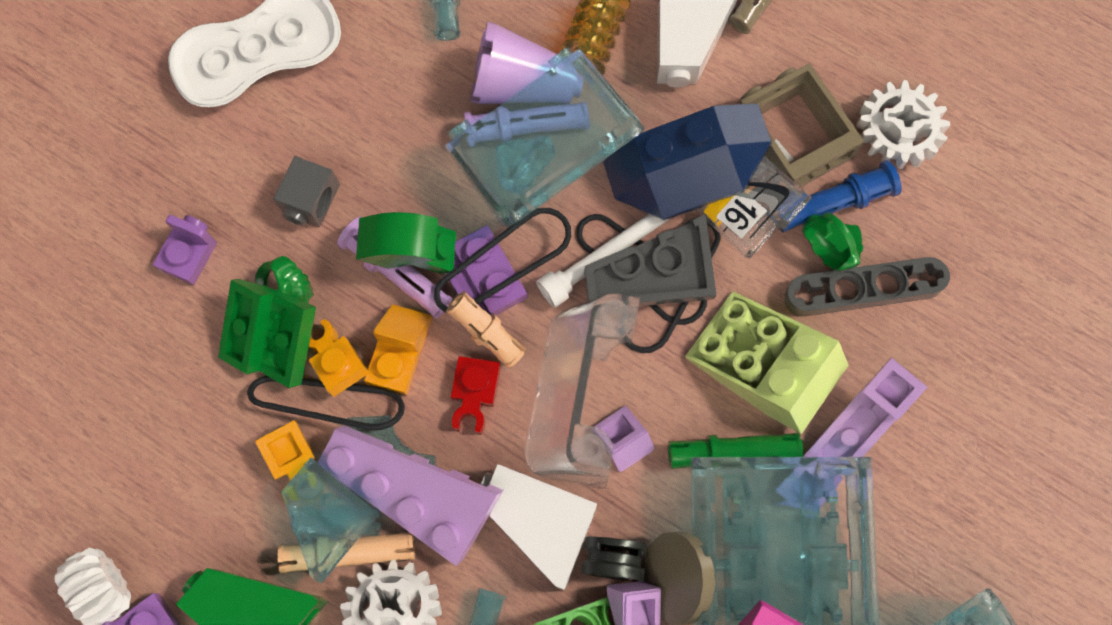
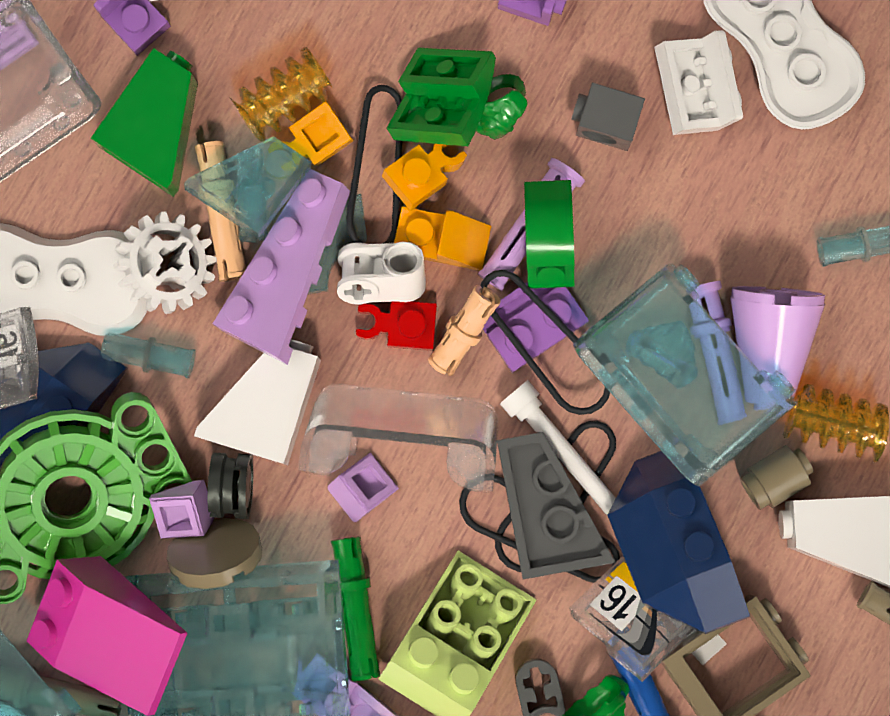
camera: 85 degrees right, 10 degrees up
(240, 482) = (282, 94): none -> clear yellow piece
(288, 114) = (699, 83): none -> white bracket
(425, 400) = (384, 272): none -> white piece
(637, 82) = (777, 477): none -> dark tan brick

